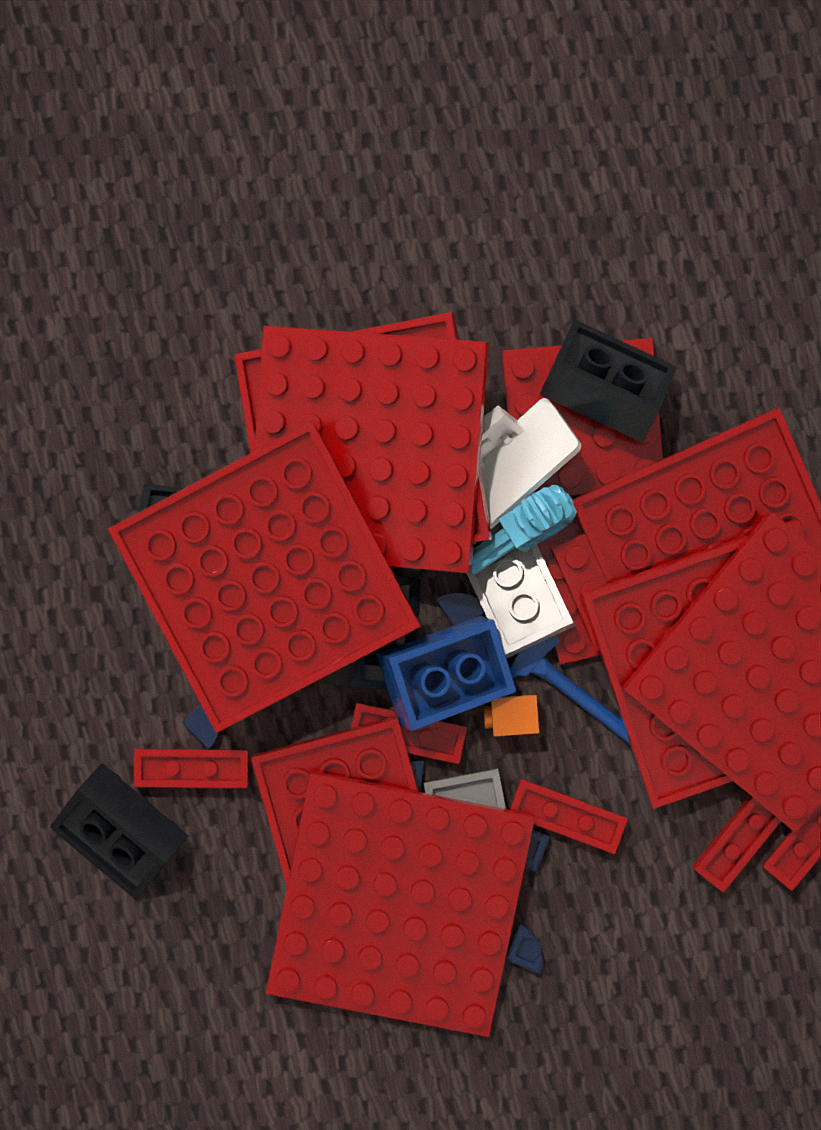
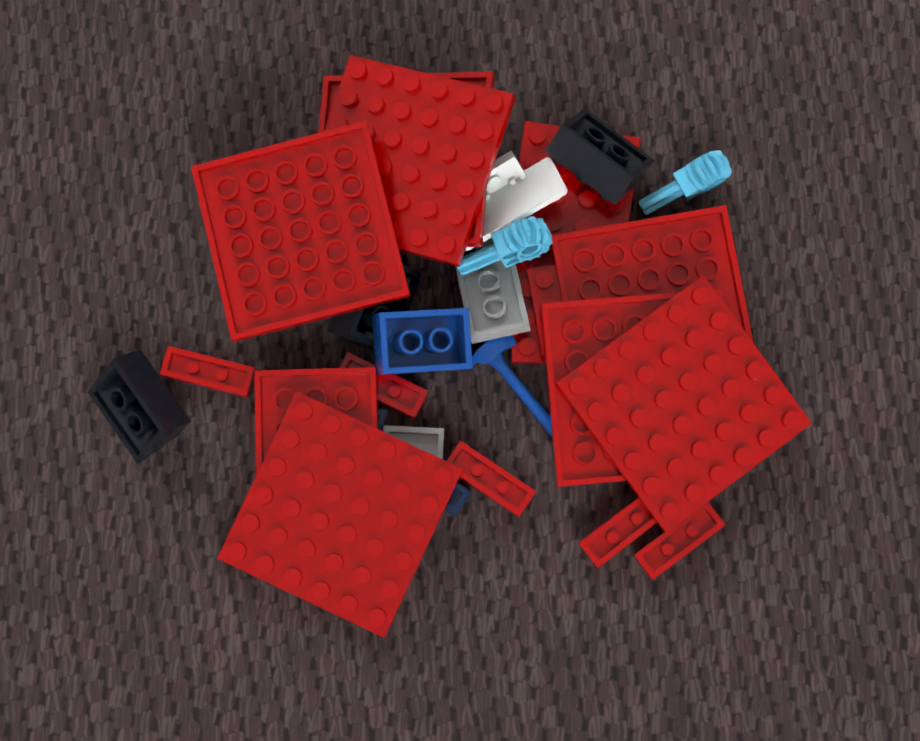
camera: 15 degrees right, 10 degrees down
(201, 727) = (224, 343): dark blue tile -> none
(460, 607) = (445, 299): dark blue tile -> none
(512, 715) = (465, 390): orange brick -> none
(525, 950) = (430, 577): dark blue tile -> none
(726, 384) = (690, 181): none -> medium azure gear

